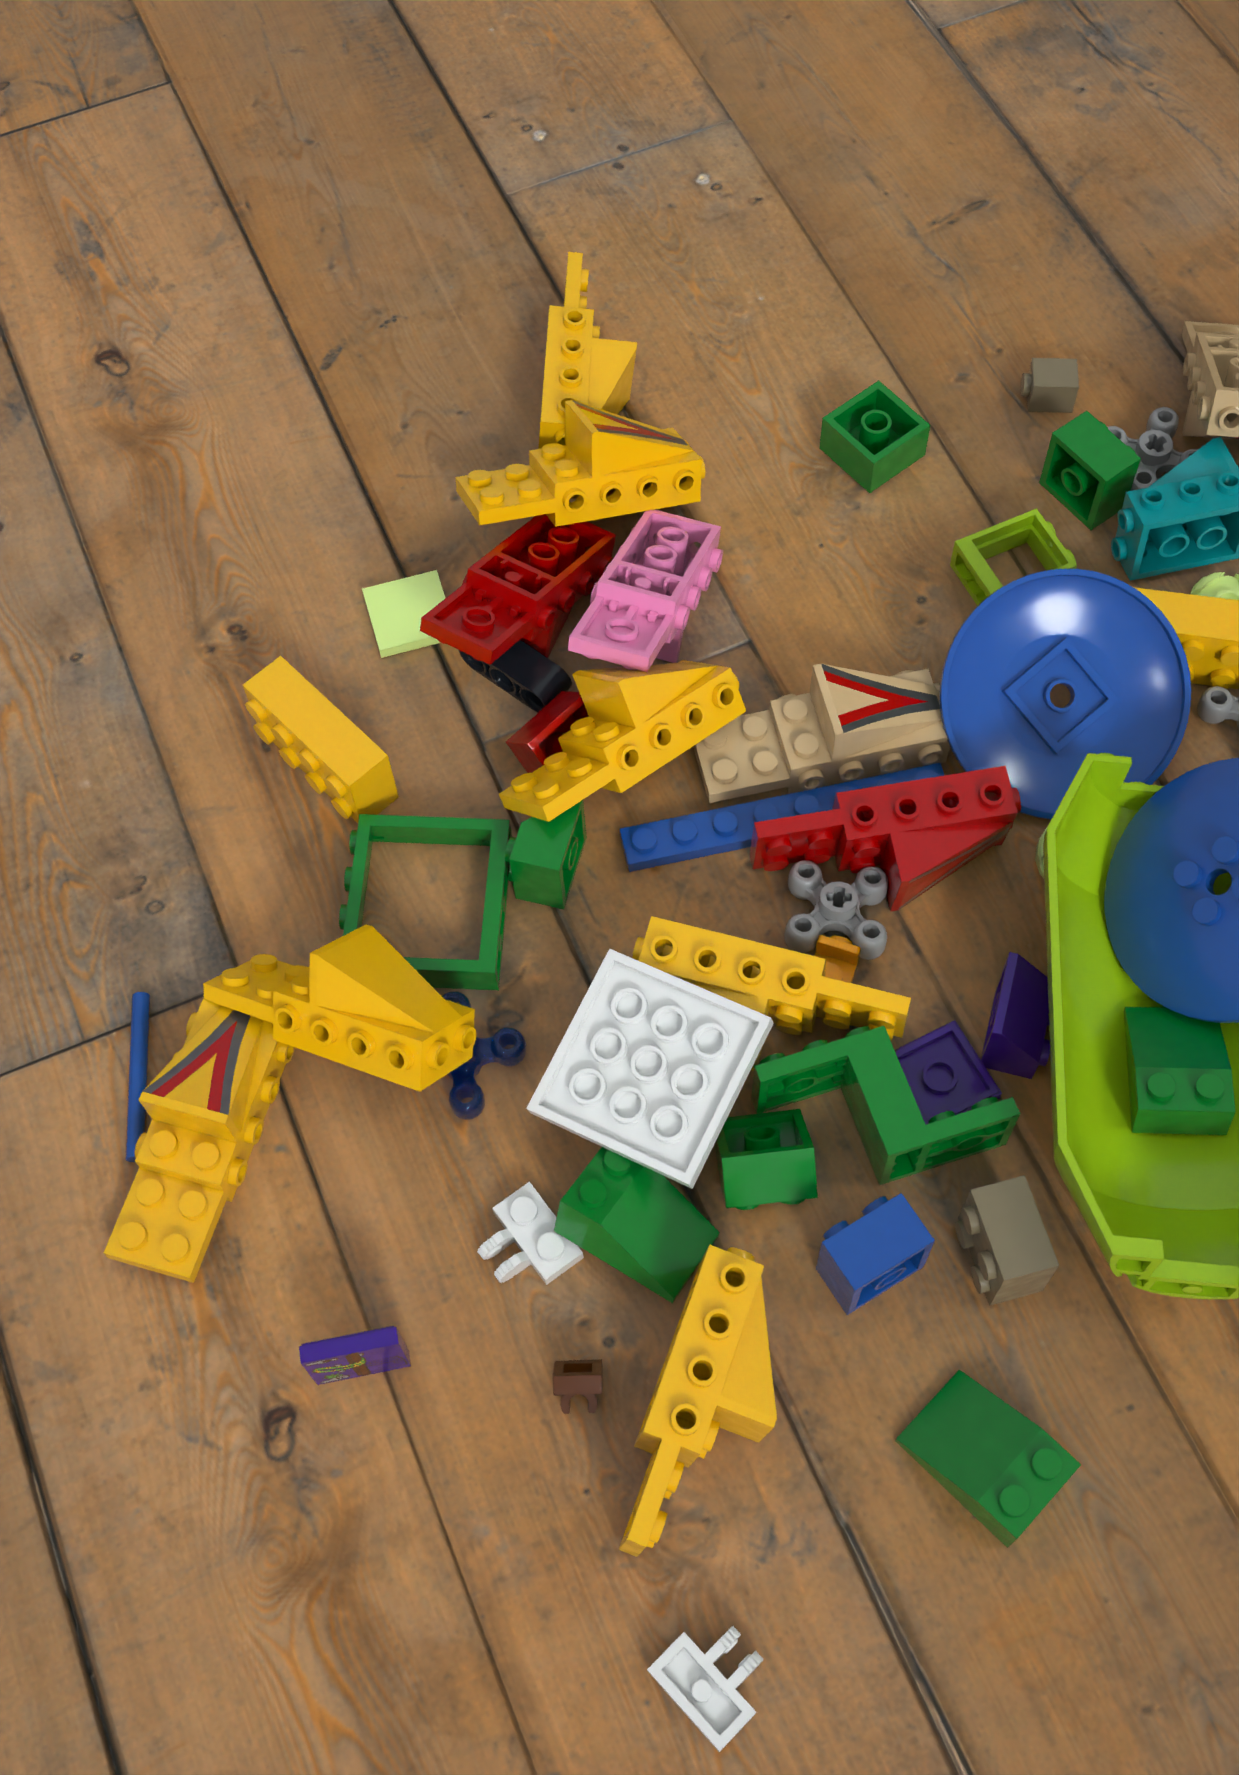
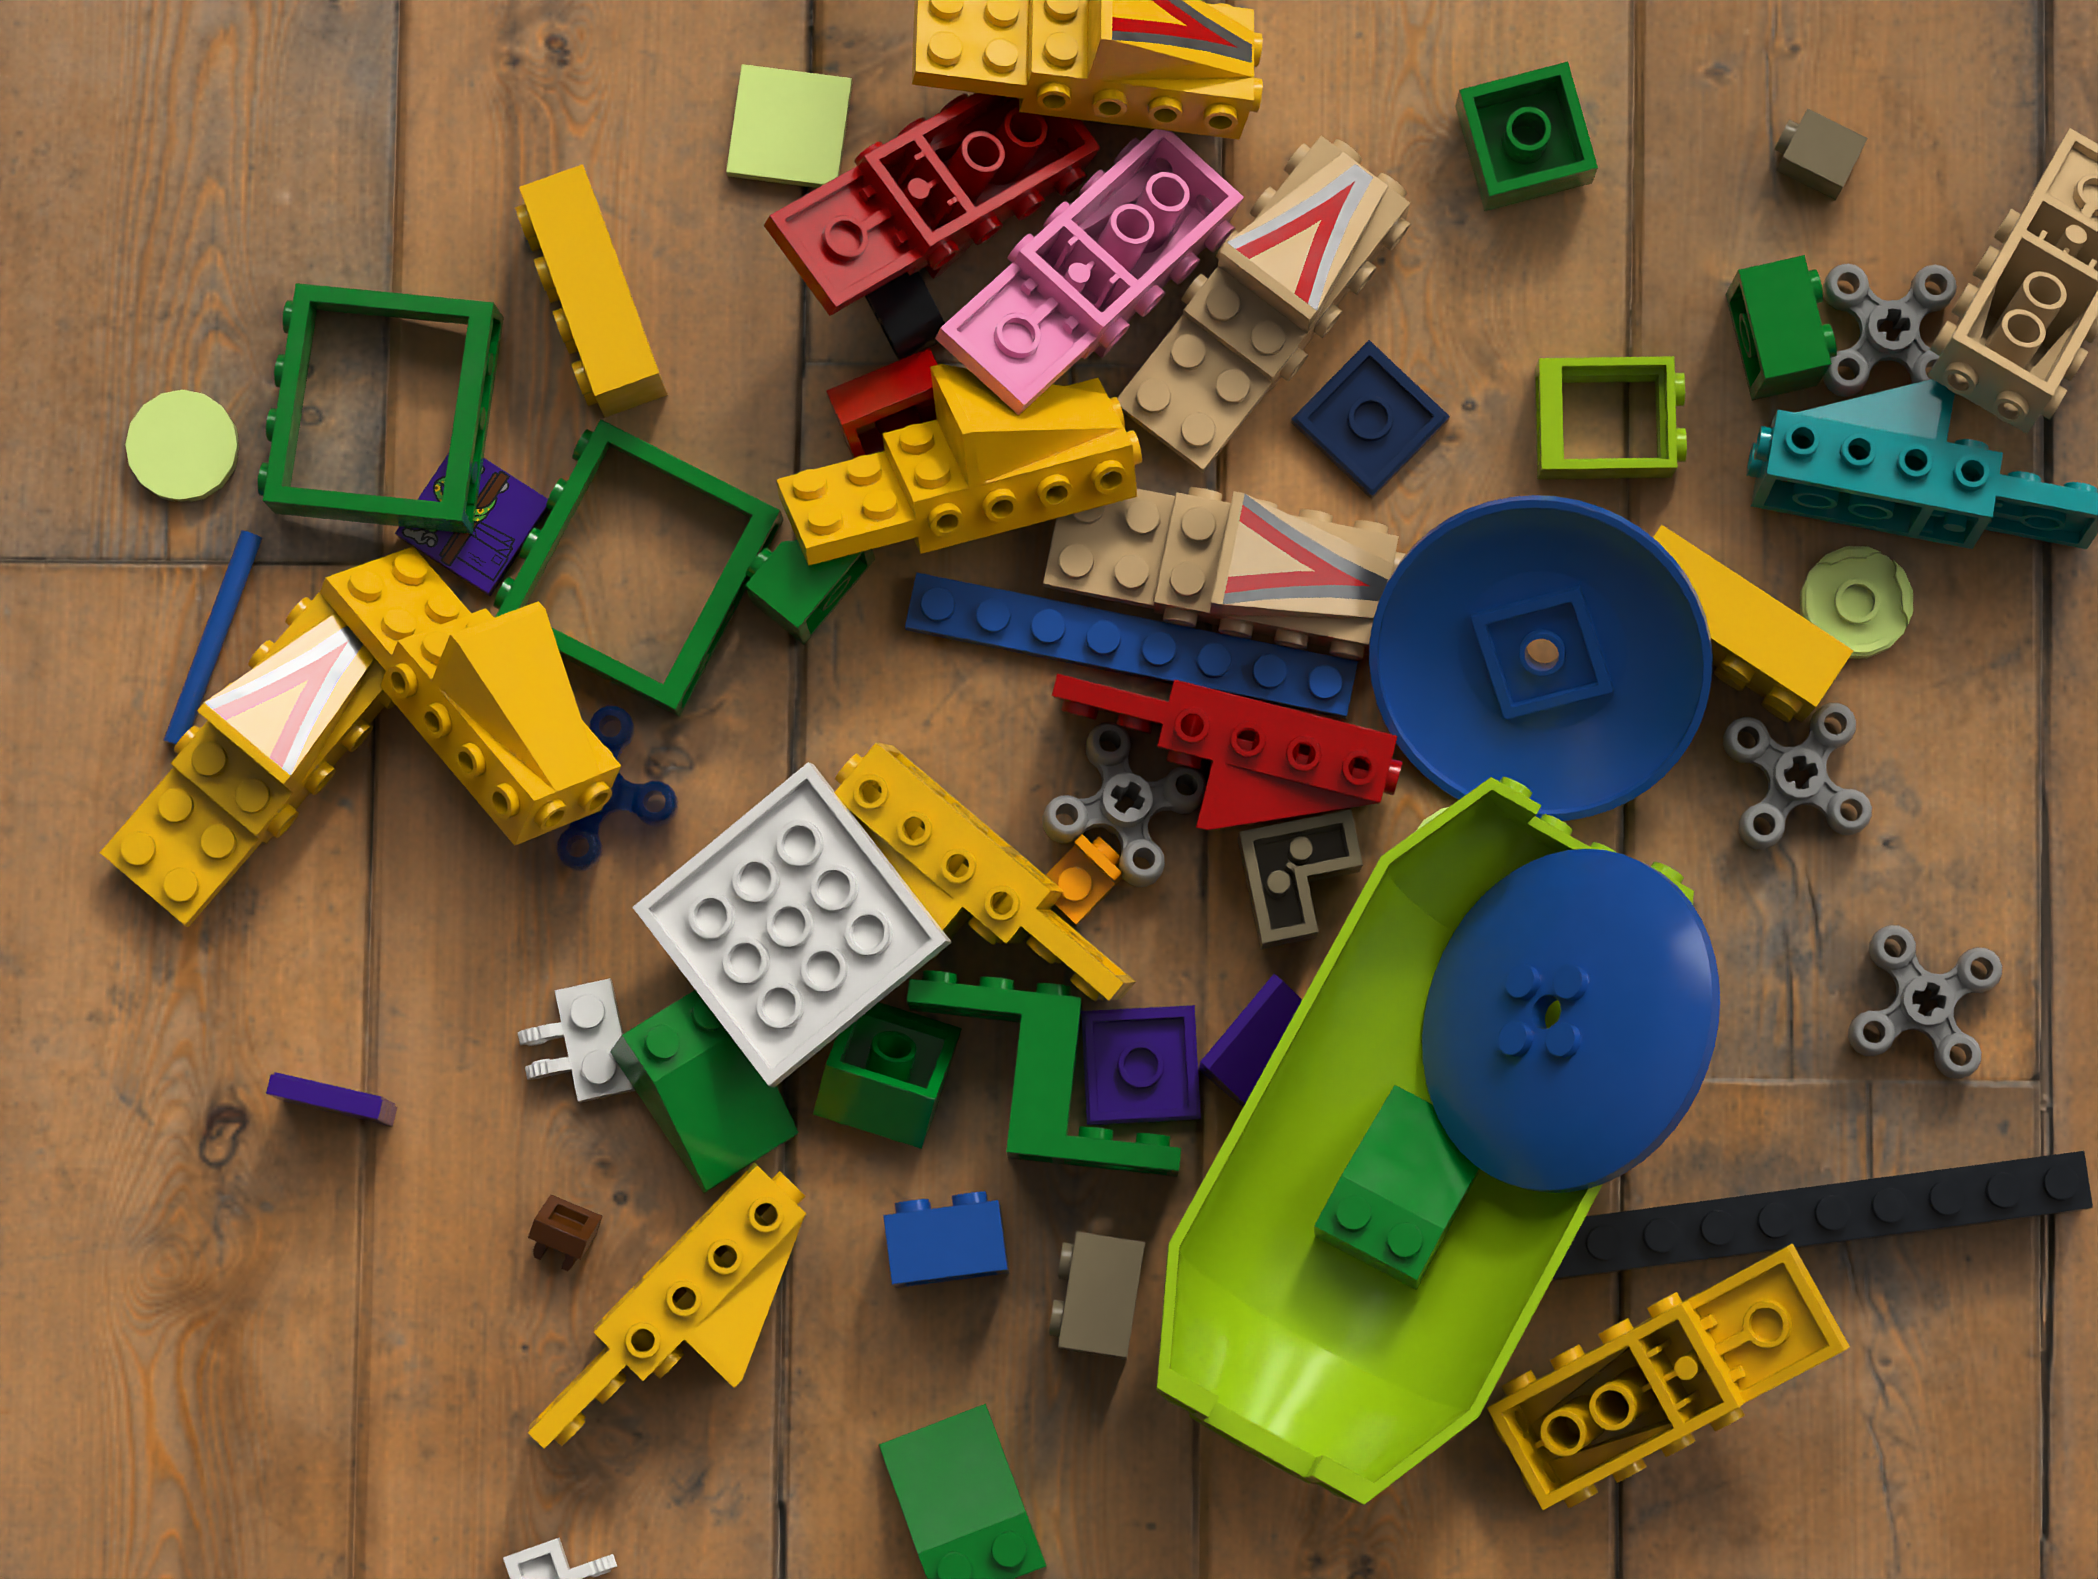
camera: 25 degrees right, 20 degrees up
(68, 959) = (182, 446): none -> yellowish green tile
(223, 933) = (470, 423): none -> green window
(294, 918) = (502, 523): none -> dark purple tile
(766, 580) = (1266, 299): none -> tan wedge
(865, 628) = (1370, 419): none -> dark blue tile
(969, 899) = (1282, 862): none -> dark tan brick

